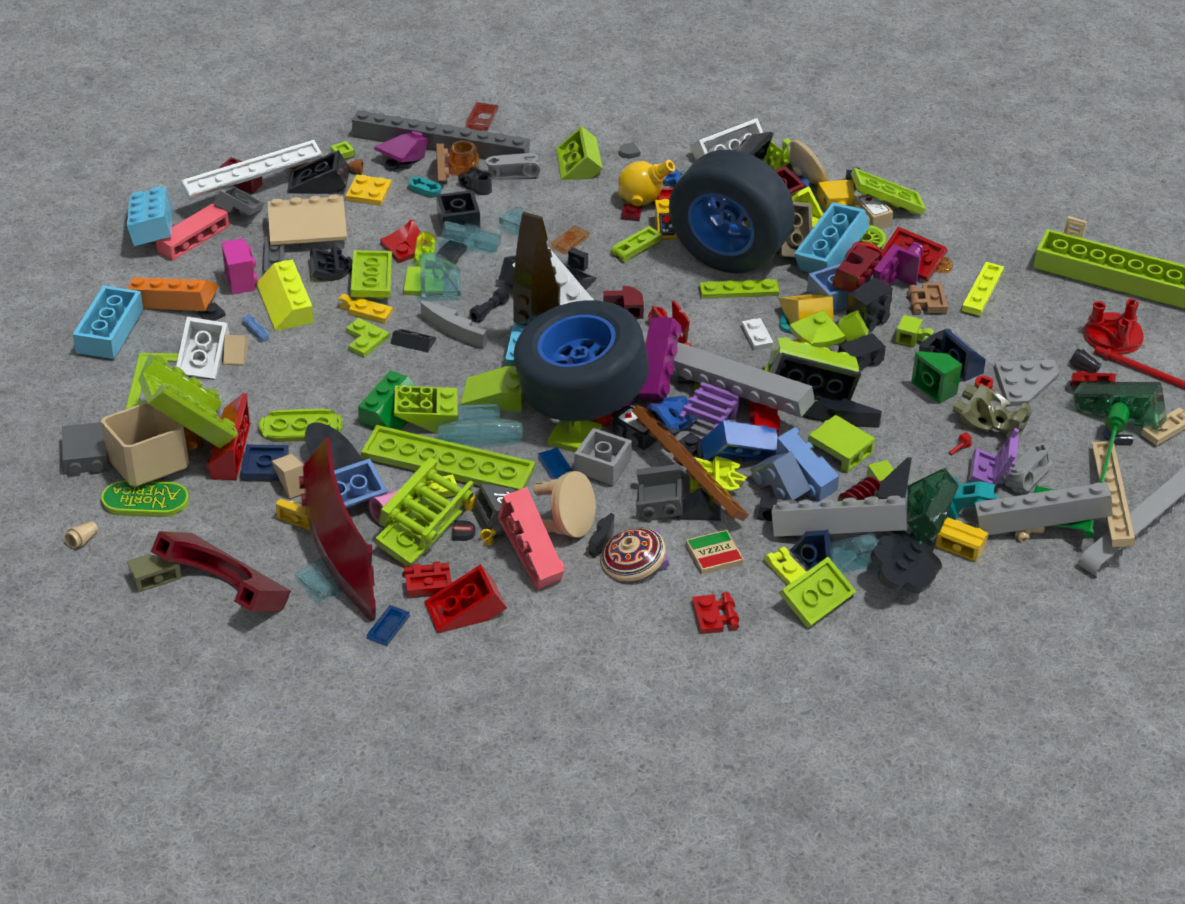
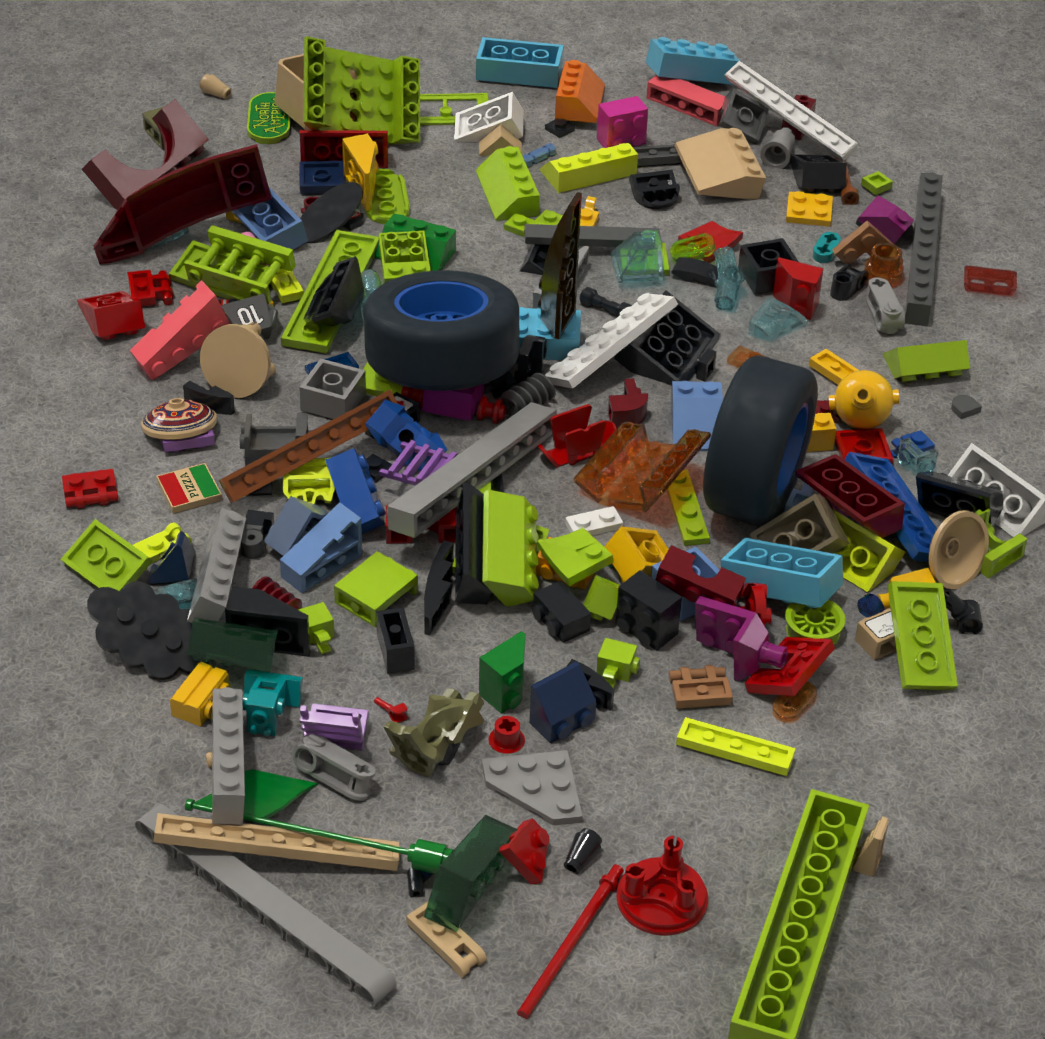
camera: 85 degrees right, 0 degrees up
(282, 189) = (778, 149): none -> light grey plant
(286, 418) = (361, 165): none -> yellow slope
(288, 470) = (294, 186): tan slope -> none
(307, 344) = (508, 184): none -> lime slope
(371, 274) = (640, 213): lime plate -> none
(388, 625) = (88, 270): clear blue tile -> none
(400, 300) = (588, 234): none -> dark grey tile
(484, 445) = (337, 295): none -> black wedge
(496, 197) = (798, 286): none -> red slope
(584, 200) = (831, 366): none -> yellow plate
(640, 270) = (694, 407): none -> medium blue slope
(661, 351) = (491, 413): magenta brick -> none
(713, 292) = (634, 471): none -> clear orange slope
(902, 431) = (395, 640): none -> black brick

